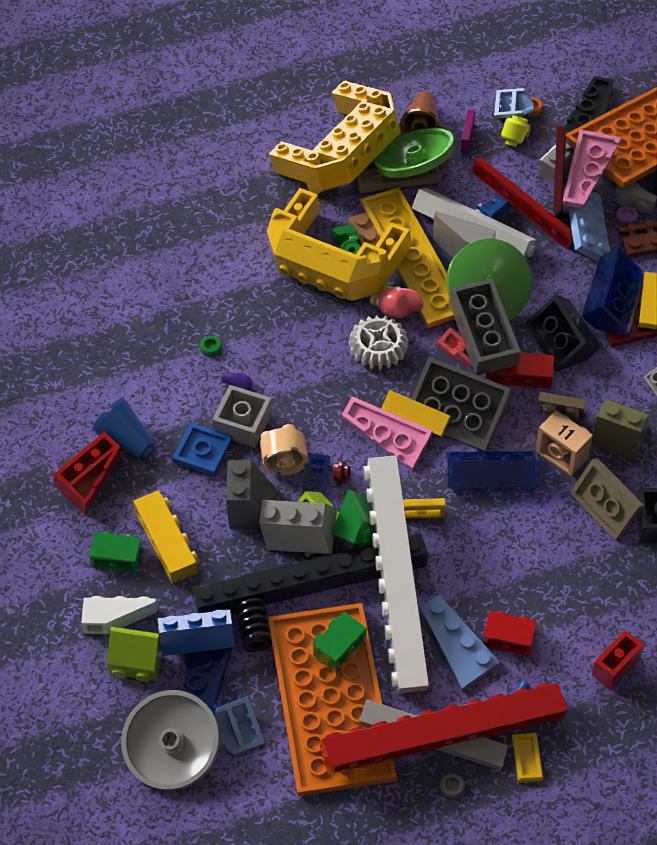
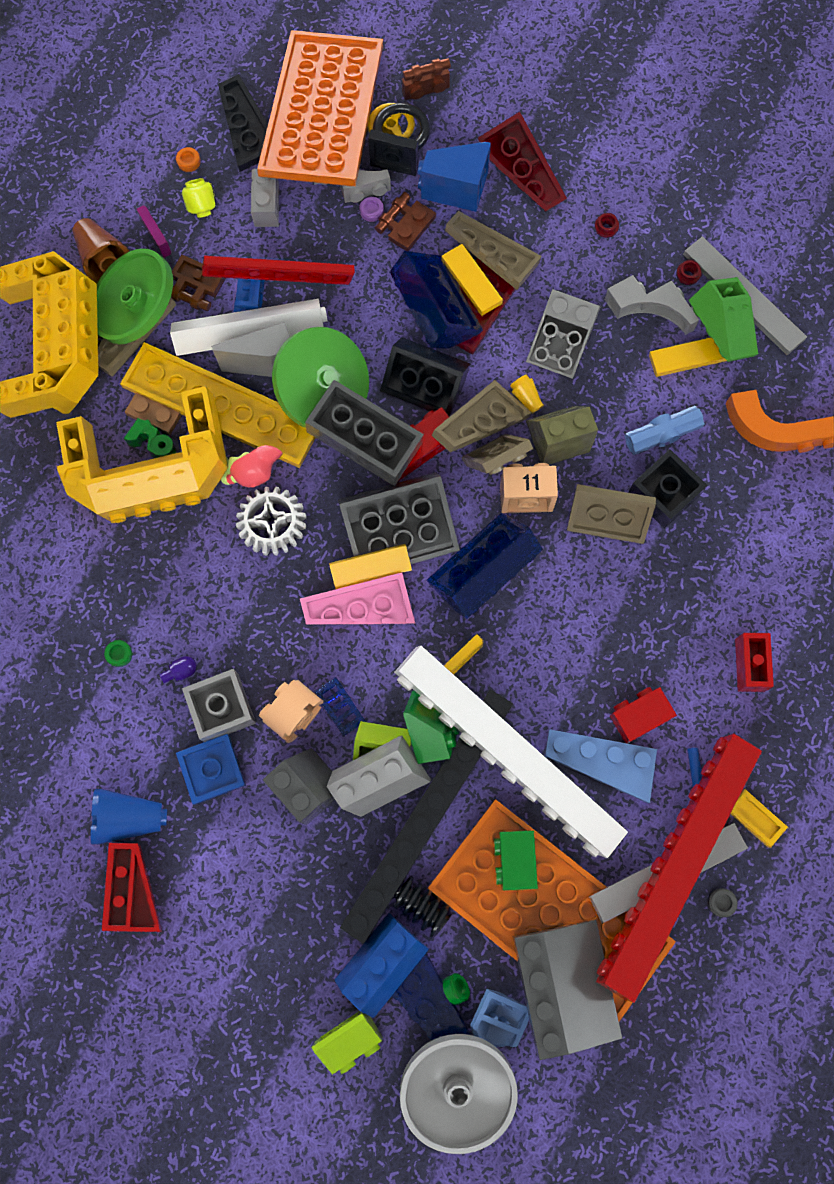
camera: 40 degrees left, 20 degrees up
(103, 613) = (281, 1020): white slope -> none
(115, 551) = (228, 947): green brick -> none
(166, 537) = (260, 890): yellow brick -> none
(228, 687) = (456, 989): none -> green tile
(290, 736) = (561, 989): none -> dark grey slope
(341, 472) = (358, 682): dark red plate -> none
(454, 346) = (337, 466): coral slope -> none
(469, 182) = (189, 273): none -> reddish brown plate
(512, 102) = (170, 170): medium blue slope -> none
(559, 171) = (286, 212): dark red tile -> none
(573, 379) = (480, 417): none -> dark tan wing
(589, 162) = (307, 181): bright pink wing -> none
(589, 228) = (347, 243): light blue plate -> none
(624, 390) = (526, 393): none -> yellow cone

